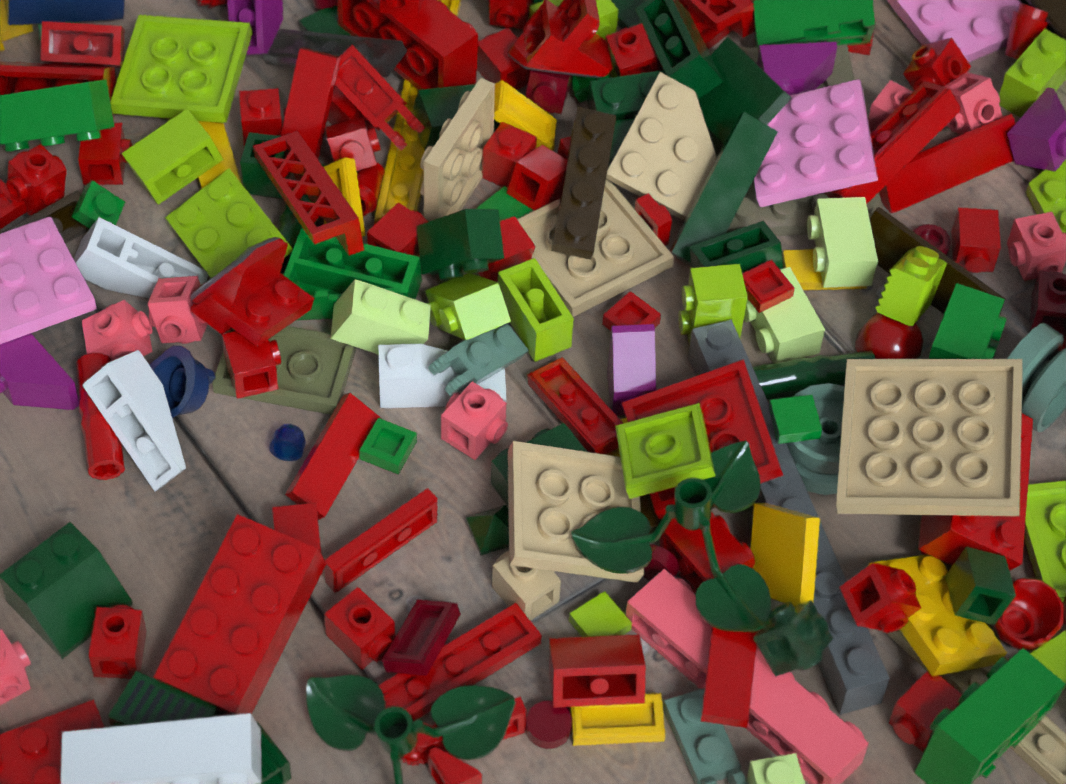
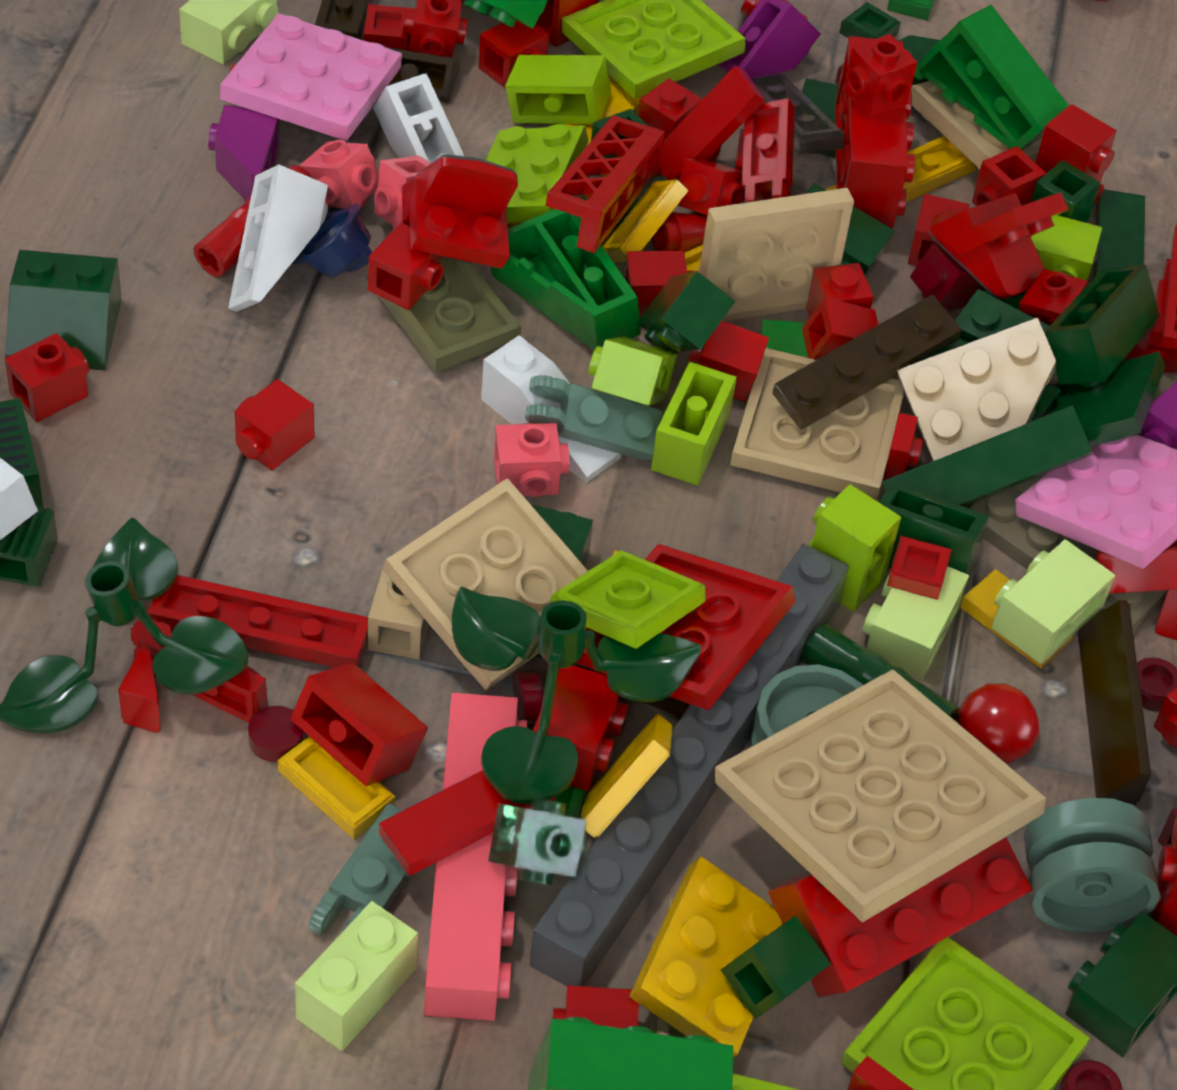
camera: 45 degrees right, 5 degrees down
(96, 203) = (457, 85): green plate -> none
(241, 617) = (138, 431): red brick -> none
(288, 442) = (368, 356): clear blue hinge -> none
(333, 455) = (386, 393): red tile -> none
(360, 628) = (228, 526): red brick -> none
(376, 316) = (550, 319): yellowish green brick -> none
(381, 540) = (335, 481): red tile -> none
(388, 446) = (439, 424): green plate -> none
(421, 637) = (263, 573): dark red tile -> none
(523, 114) = (887, 273): yellow tile -> none
(576, 406) = (636, 517): red tile -> none
(600, 618) = (428, 697): lime tile -> none
(630, 364) = (715, 521): slope -> none
(631, 311) = (777, 505): red plate -> none
(795, 419) = (782, 678): green tile -> none
(881, 597) = (652, 876): red brick -> none
(911, 285) = (1065, 685): lime brick -> none
(969, 326) = (1060, 755): green brick -> none
(1031, 616) = (802, 1042): red hair -> none

